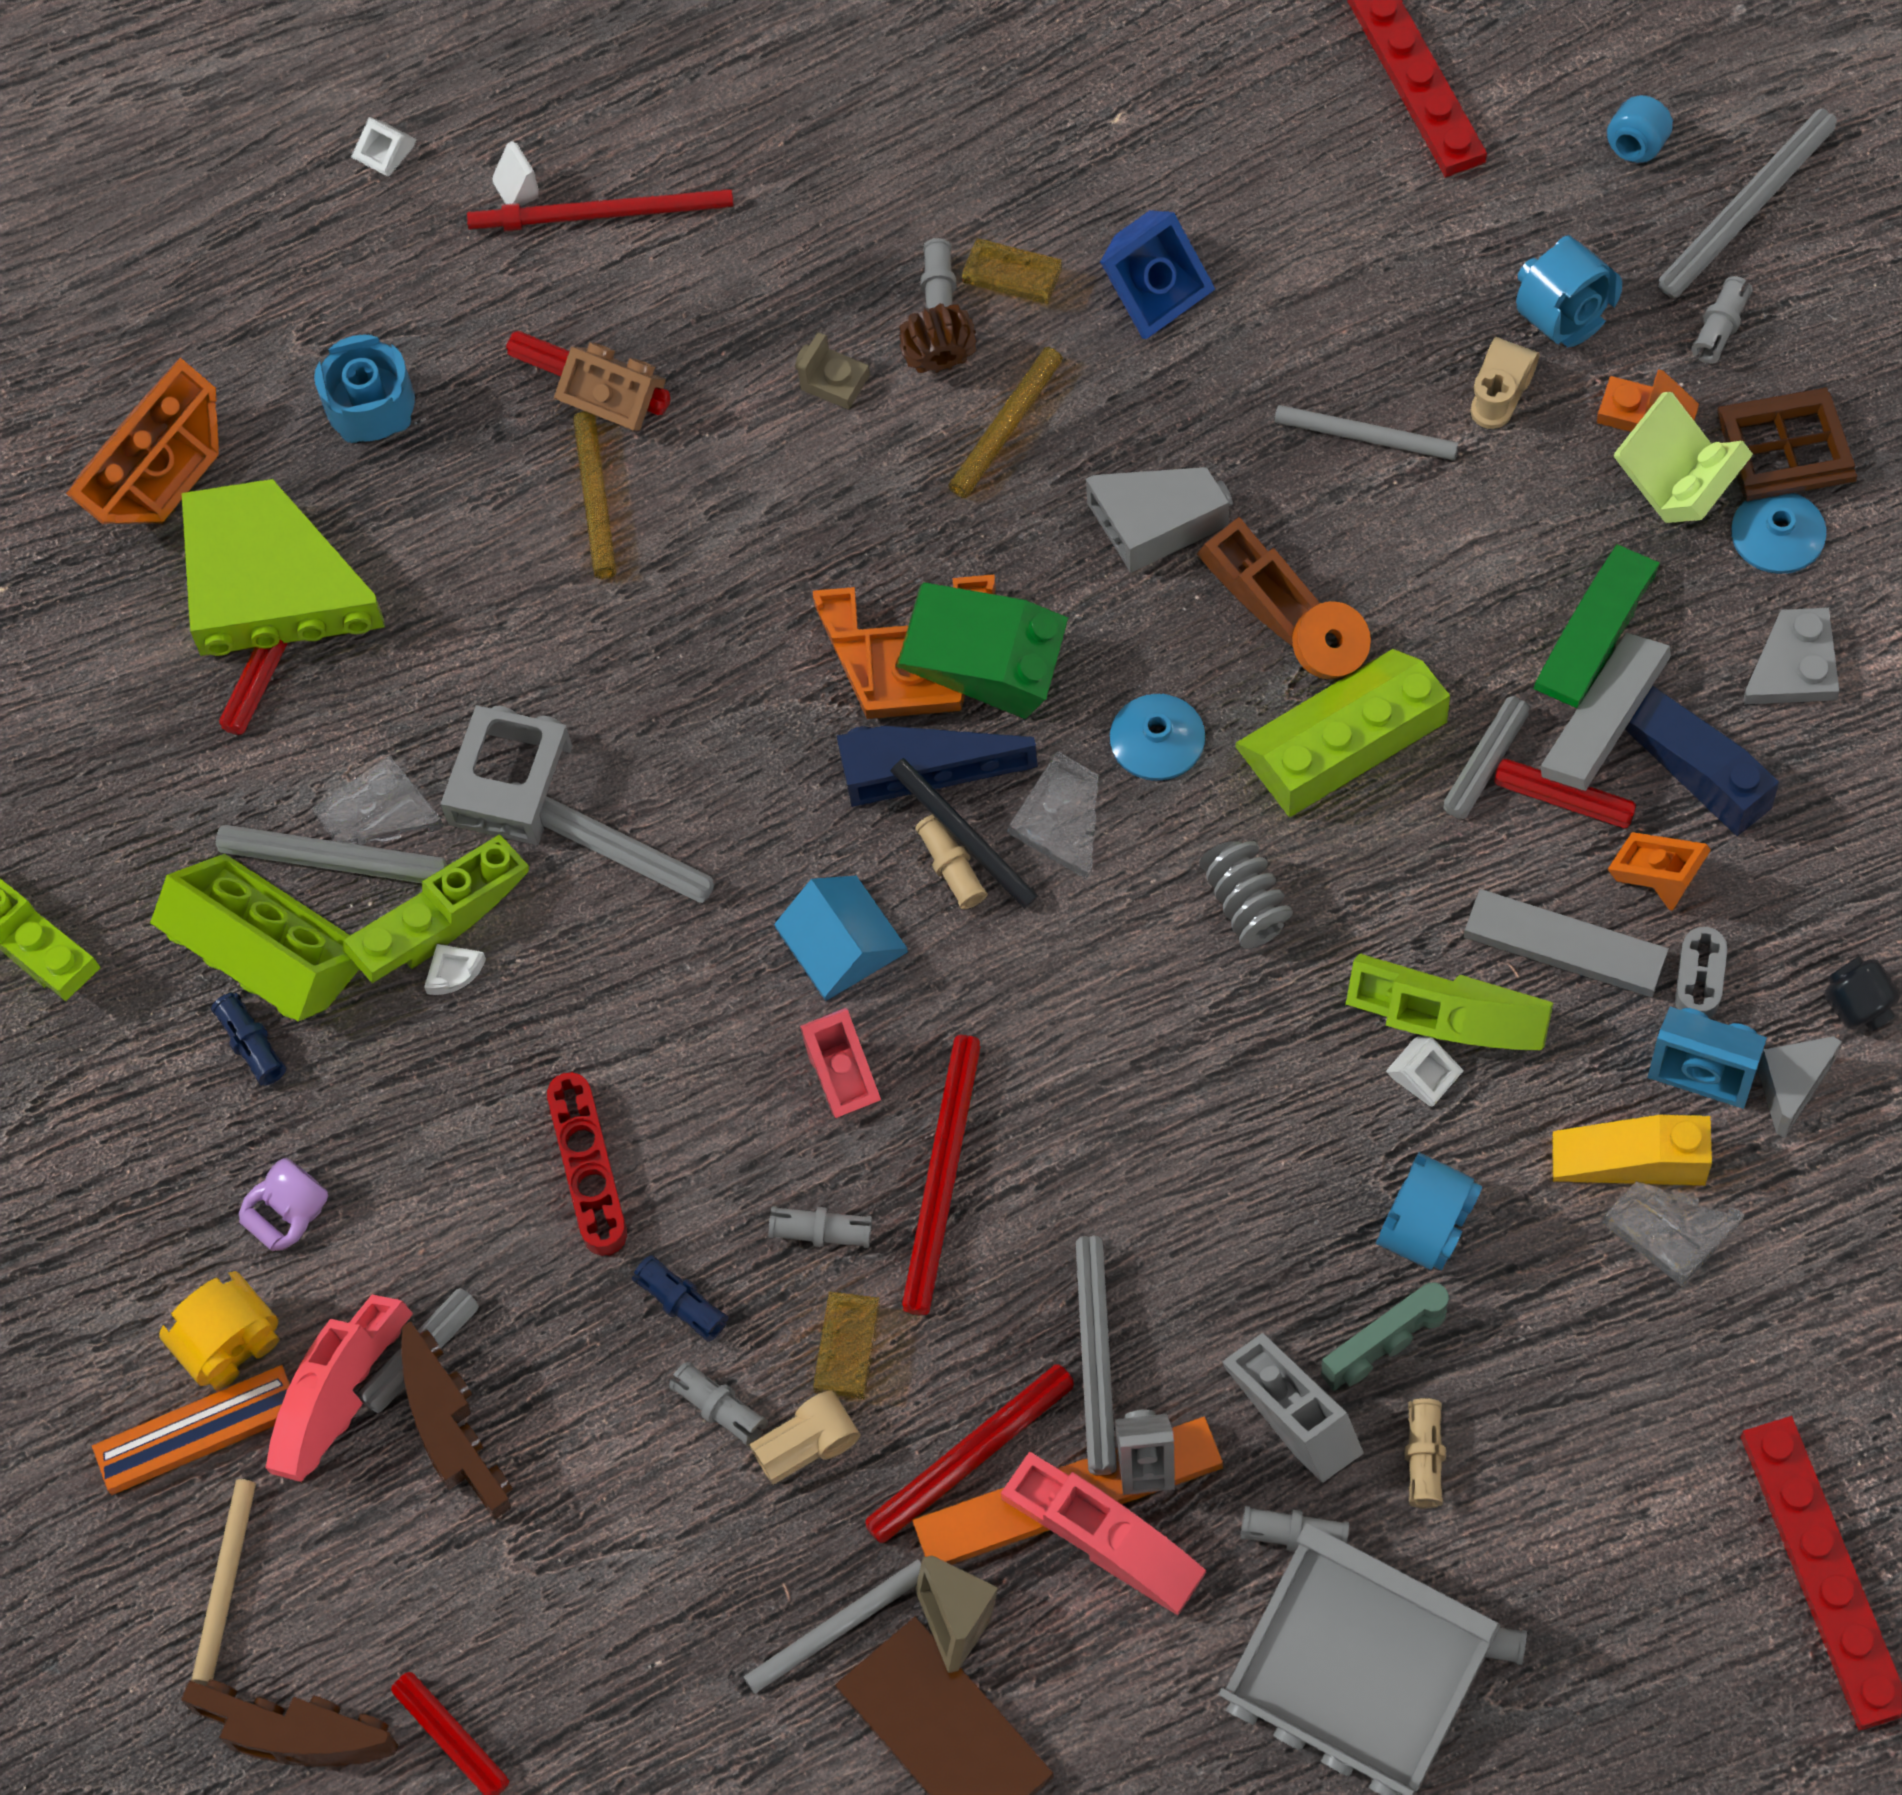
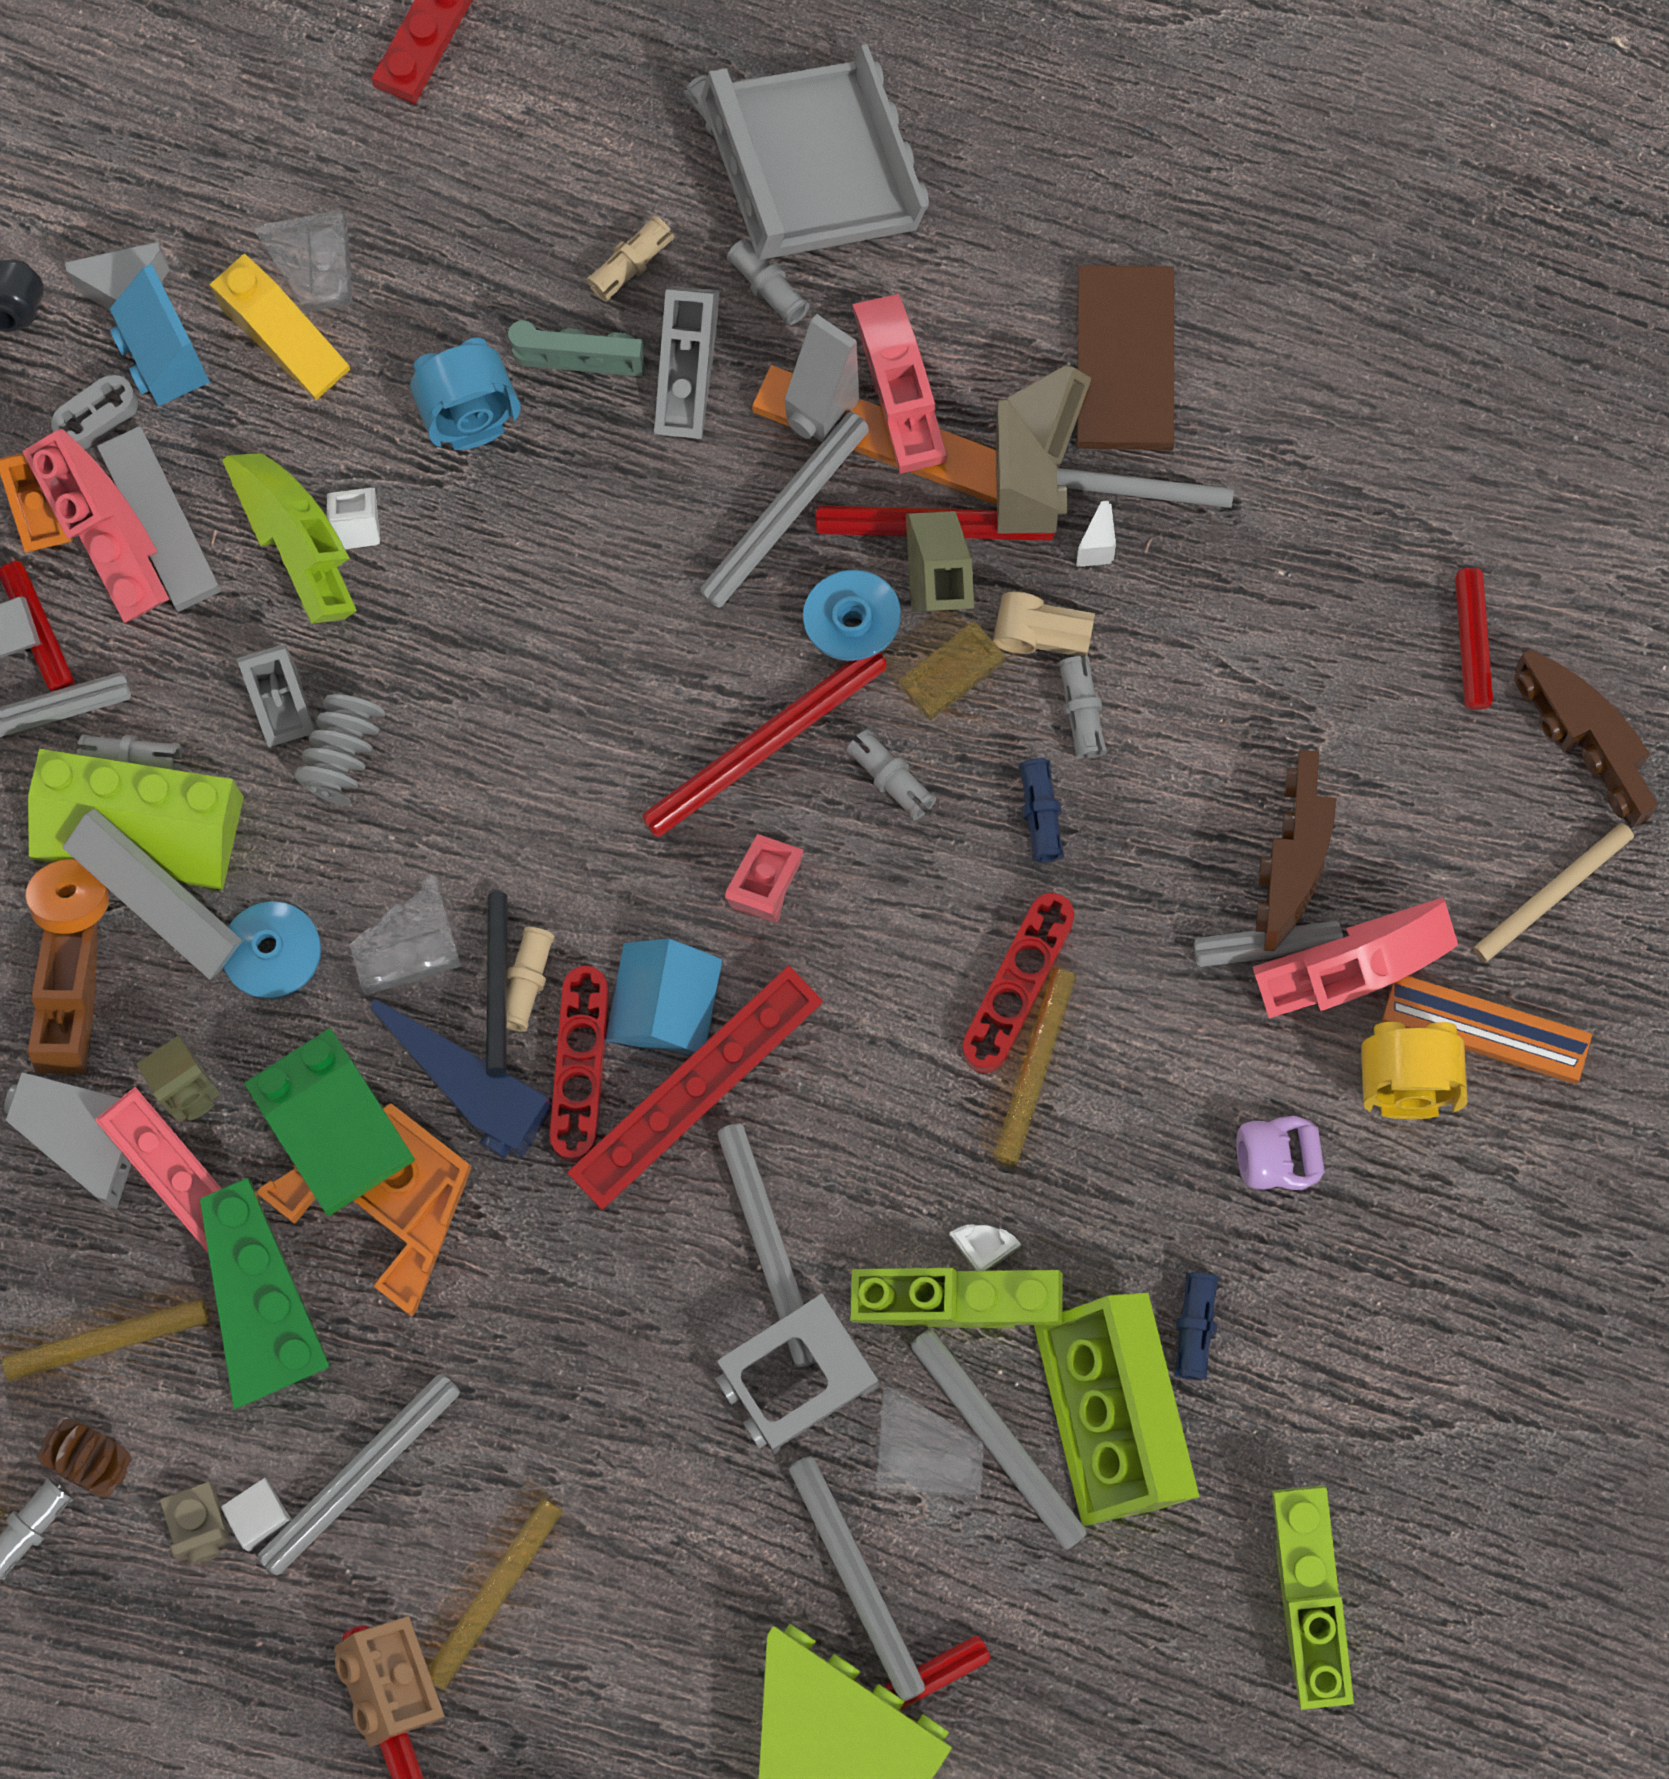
camera: 140 degrees left, 10 degrees up
(353, 690) = (857, 1578): none -> light grey axle
(522, 1117) = (1034, 1066): none -> clear yellow piece
(753, 487) = (358, 1474): none -> light grey axle
(755, 894) = (695, 1088): none -> red plate
(796, 409) = (256, 1515): none -> white slope
(820, 1547) = (1099, 540): none -> white slope
(860, 841) = (574, 1063): none -> red beam
(916, 1518) = (1024, 478): none -> dark tan slope
(922, 516) = (259, 1307): none -> green wing
(926, 1403) = (938, 563): none -> olive slope
(966, 1292) = (846, 597): none -> dark azure dish
(1050, 534) = (160, 1159): none -> coral tile
(1120, 588) = (179, 1080): none -> olive slope
(1270, 685) = (152, 893): none -> light grey tile
(1334, 891) = (276, 694): none -> light grey slope
(1396, 765) = (132, 750): none -> light grey pin
(1601, 882) = (98, 513): none -> coral slope

